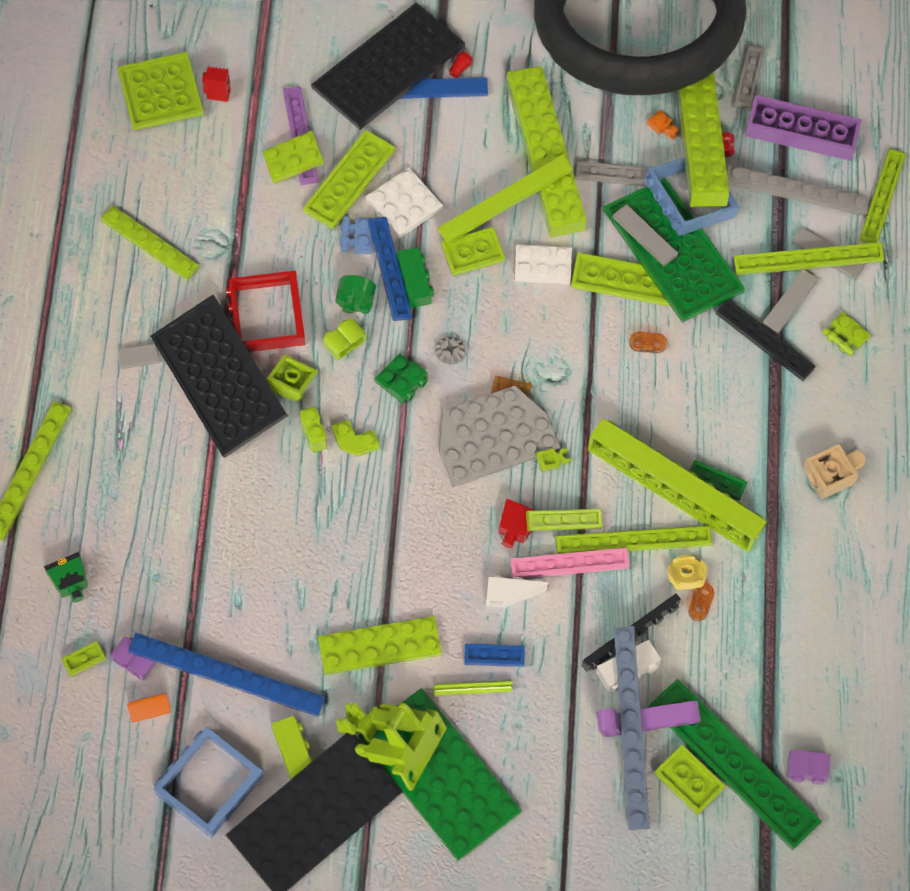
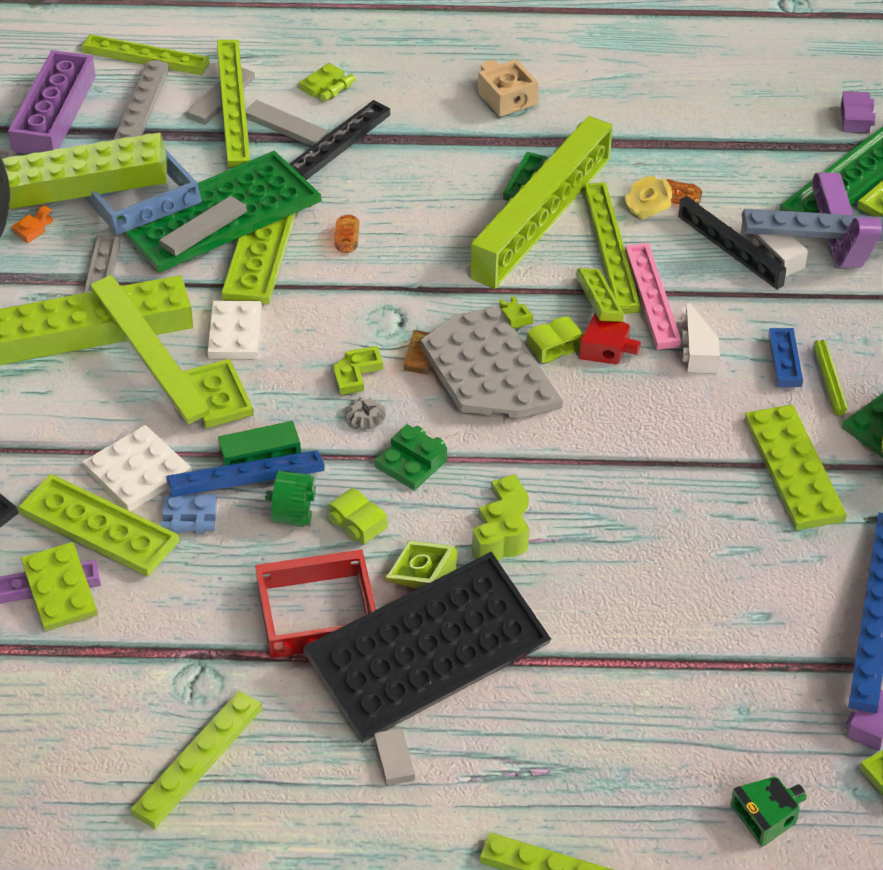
camera: 90 degrees left, 20 degrees down
(494, 339) = (349, 369): none -> lime plate
(519, 485) = (554, 339): none -> lime brick

